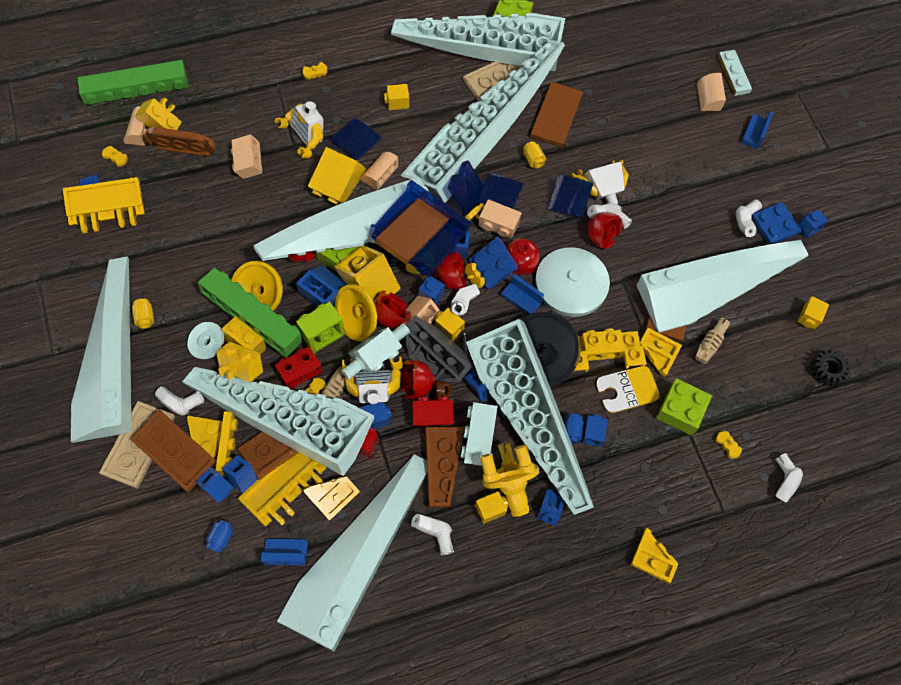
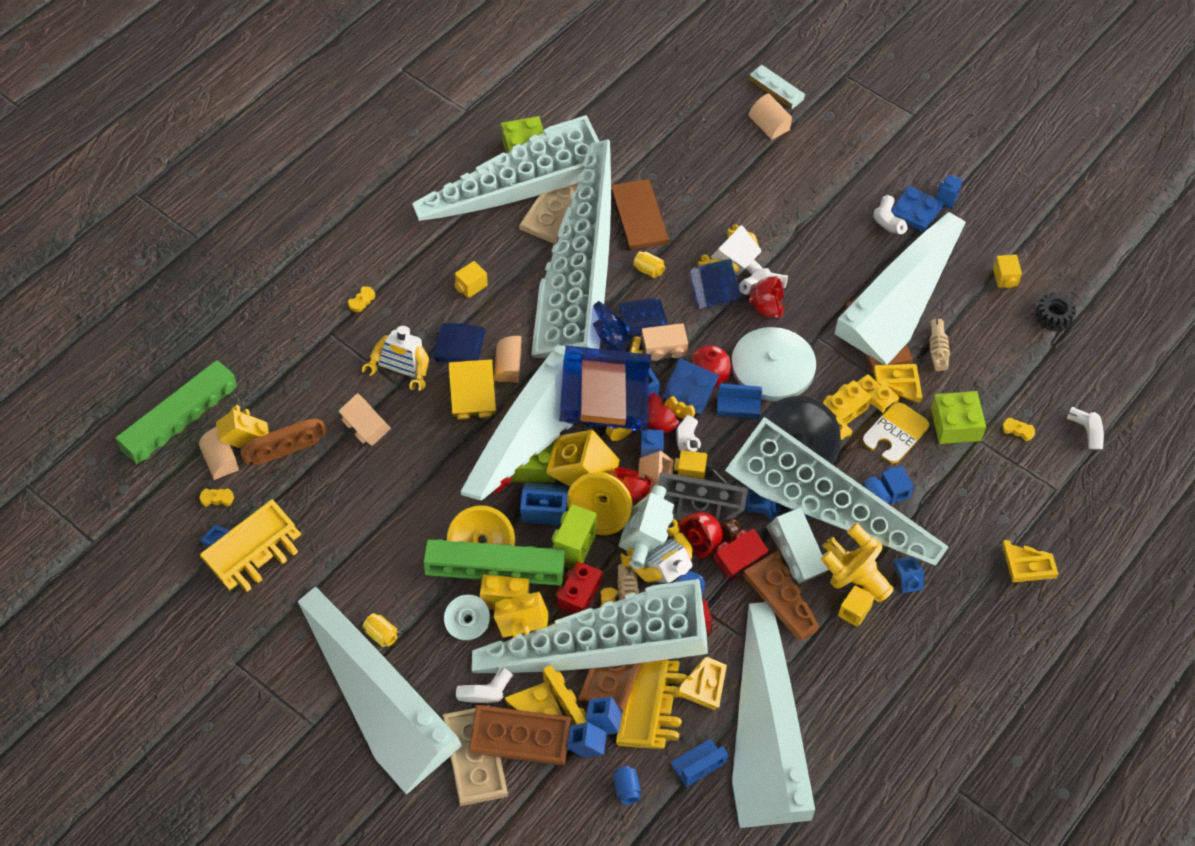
camera: 30 degrees left, 10 degrees down
(436, 528) = (822, 654): white arm -> none
(756, 130) = (838, 131): blue panel -> none

